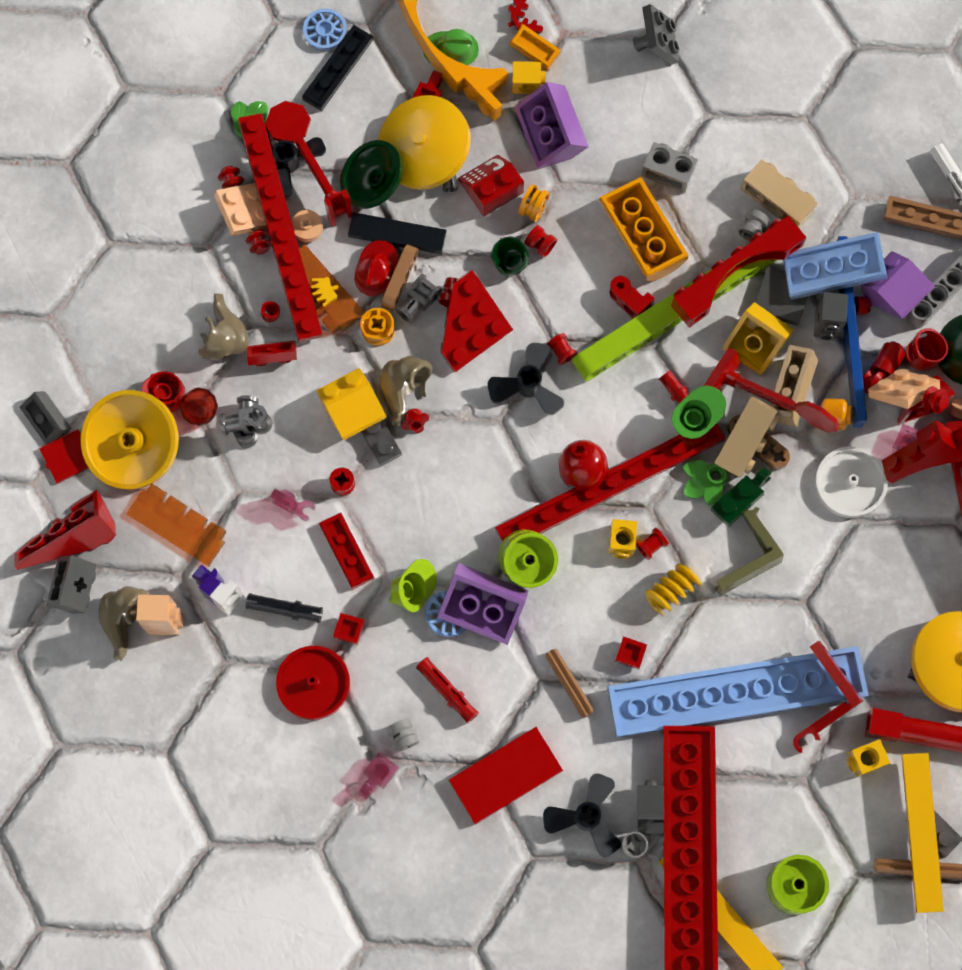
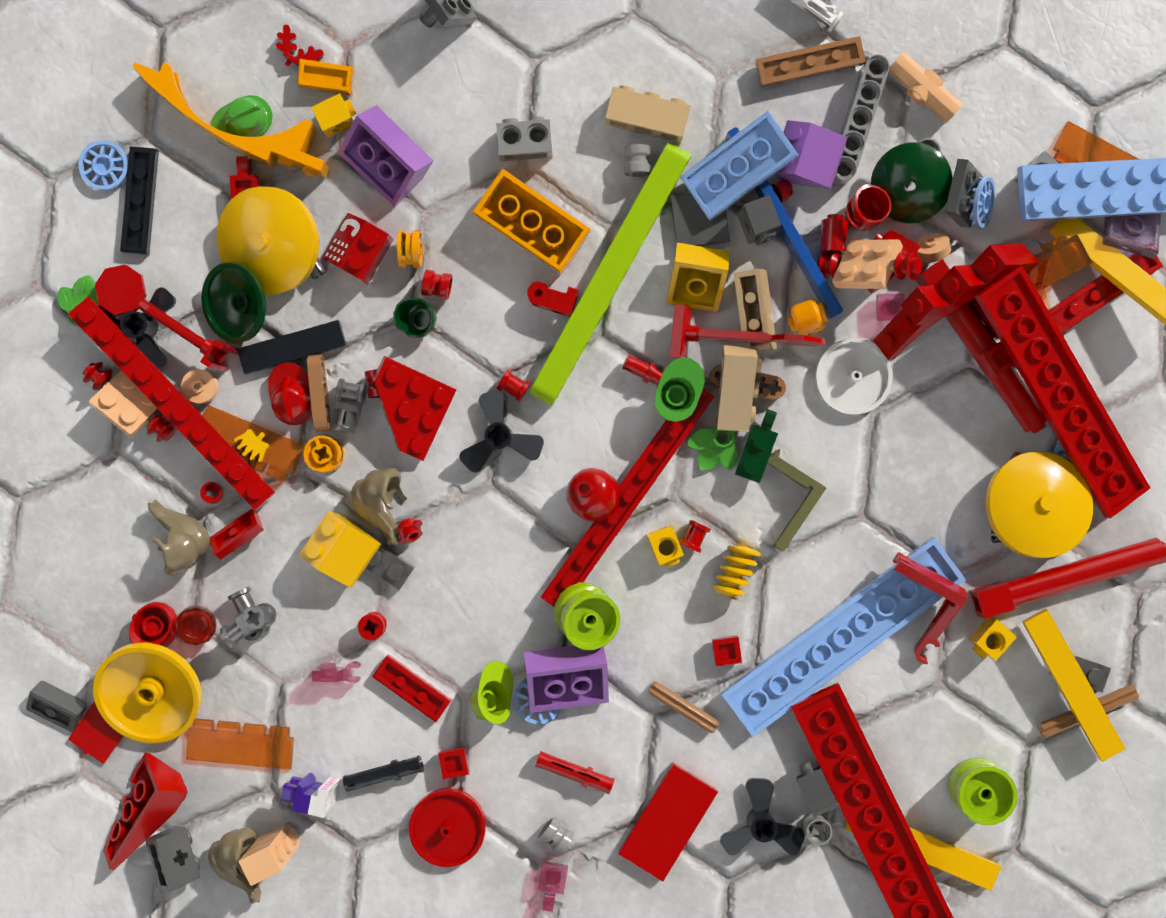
camera: 25 degrees left, 15 degrees up
(775, 244) = (672, 172): red arch -> none

